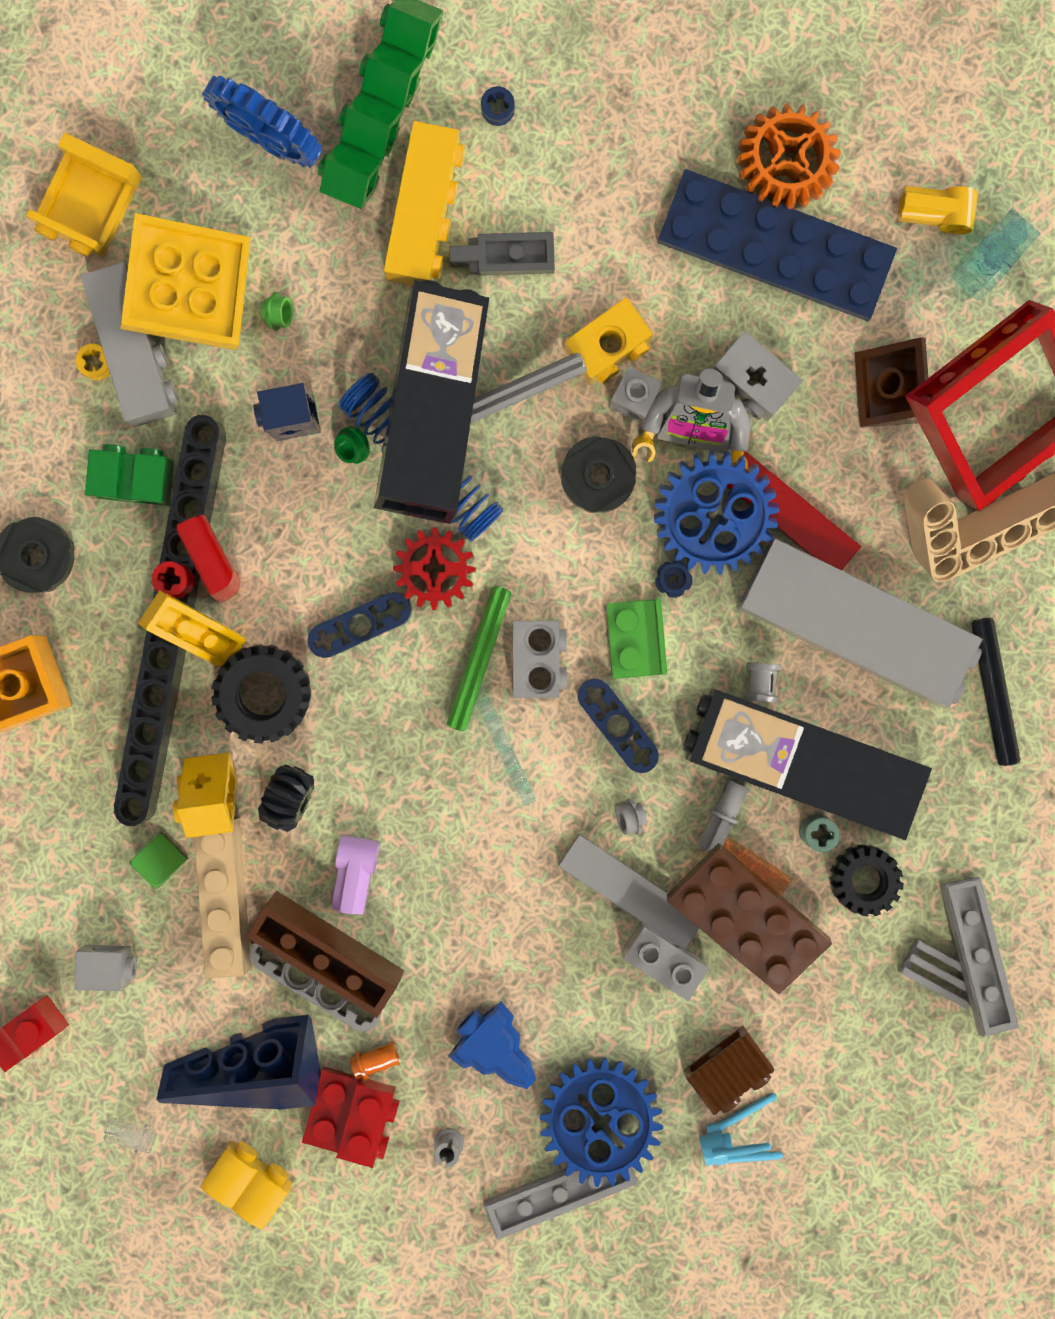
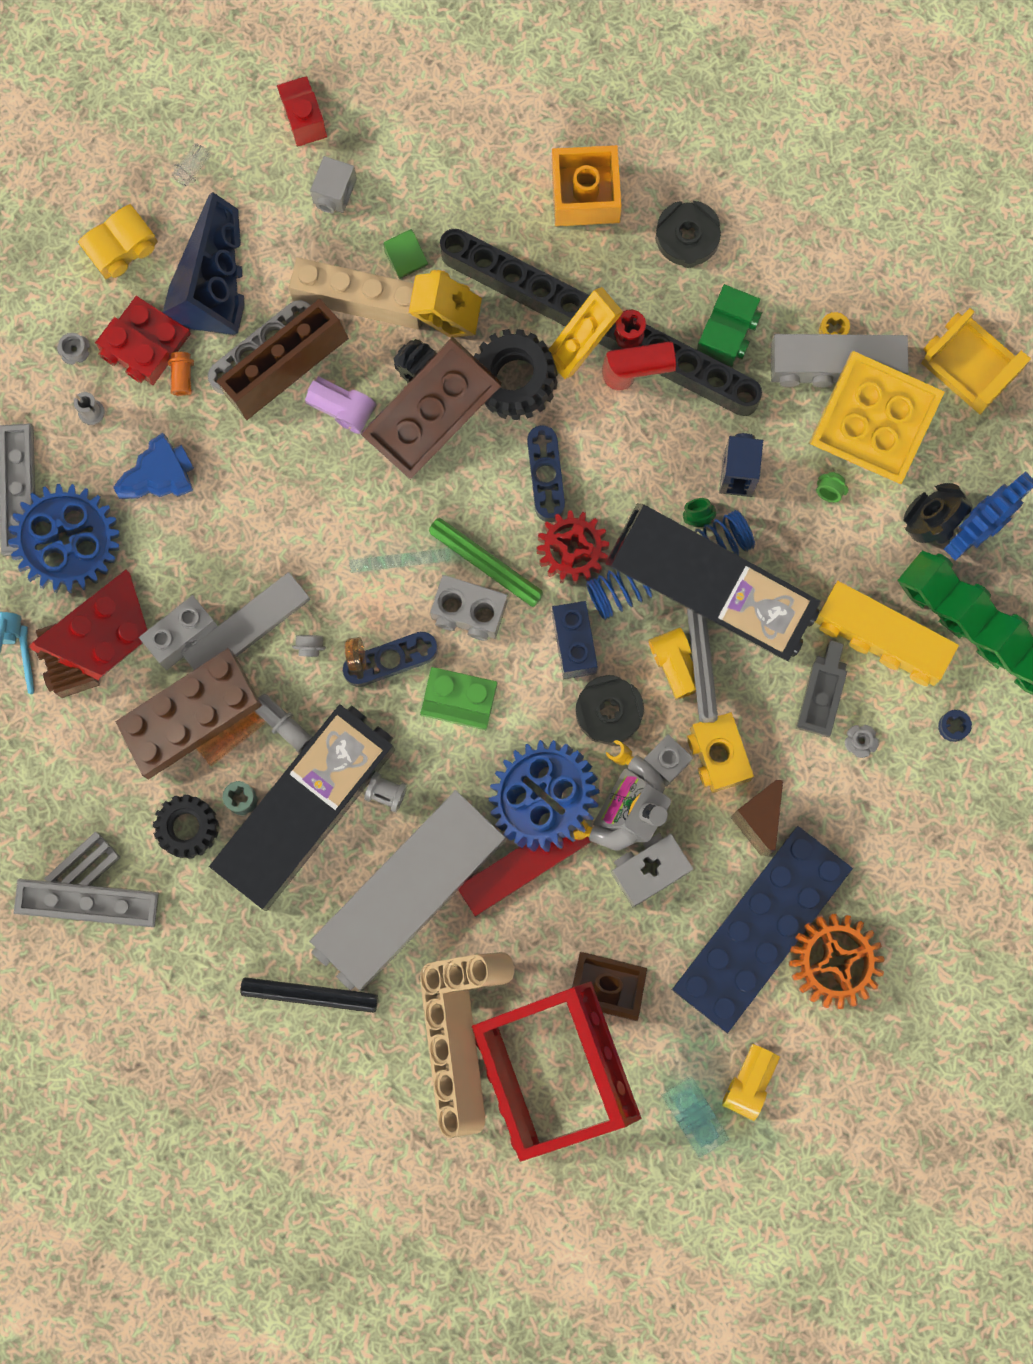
camera: 105 degrees right, 10 degrees down
(286, 173) = (937, 515): none -> black plate
(332, 769) = (431, 408): none -> reddish brown plate
(376, 1196) = (73, 340): none -> light grey plate
(519, 424) = (674, 658): none -> yellow piece
(537, 534) = (574, 640): none -> dark blue brick
(545, 209) = (858, 749): none -> light grey plate
(630, 762) = (355, 654): none -> clear orange tile
(665, 274) = (760, 818): none -> reddish brown slope
(683, 582) = (496, 737): dark blue plate -> none
(693, 1047) = (98, 630): none -> red wing

